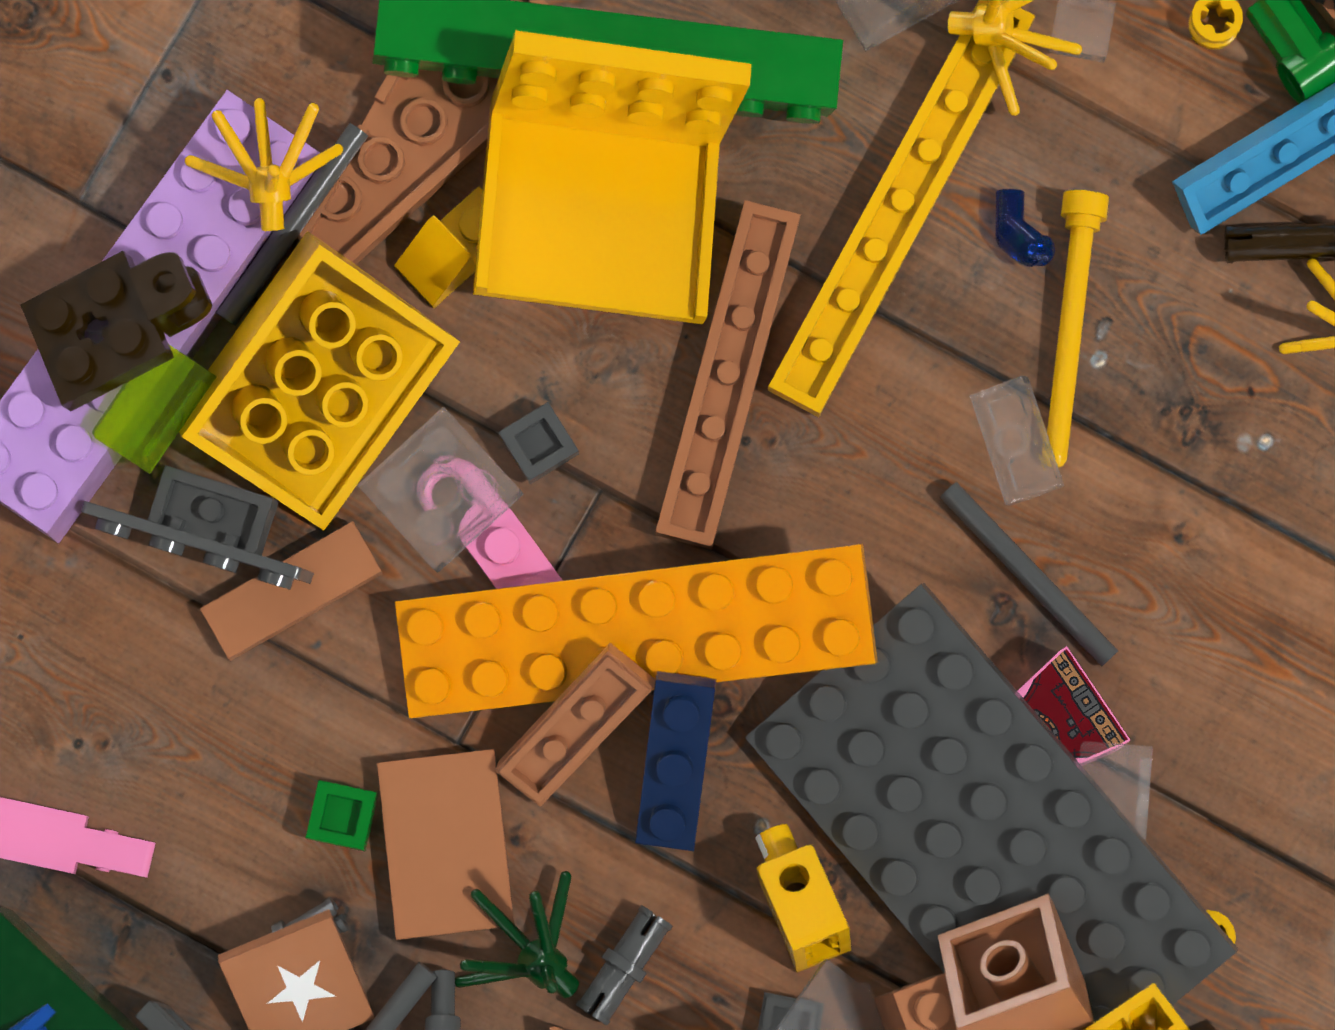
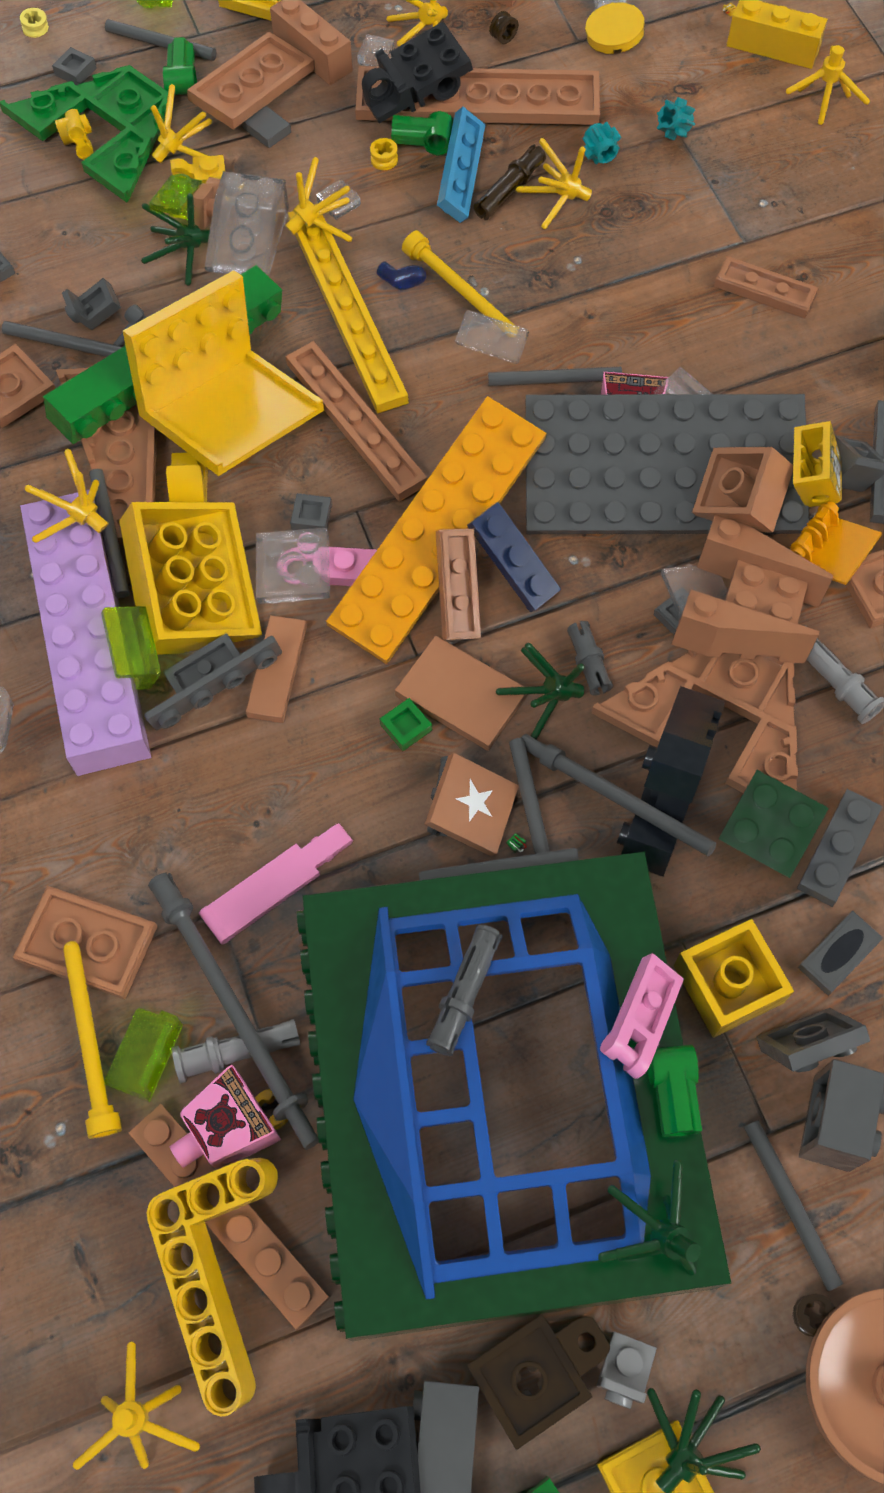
camera: 50 degrees left, 15 degrees down
(140, 308) = (77, 605): dark brown plate -> none
(806, 919) = (627, 555): yellow torso -> none

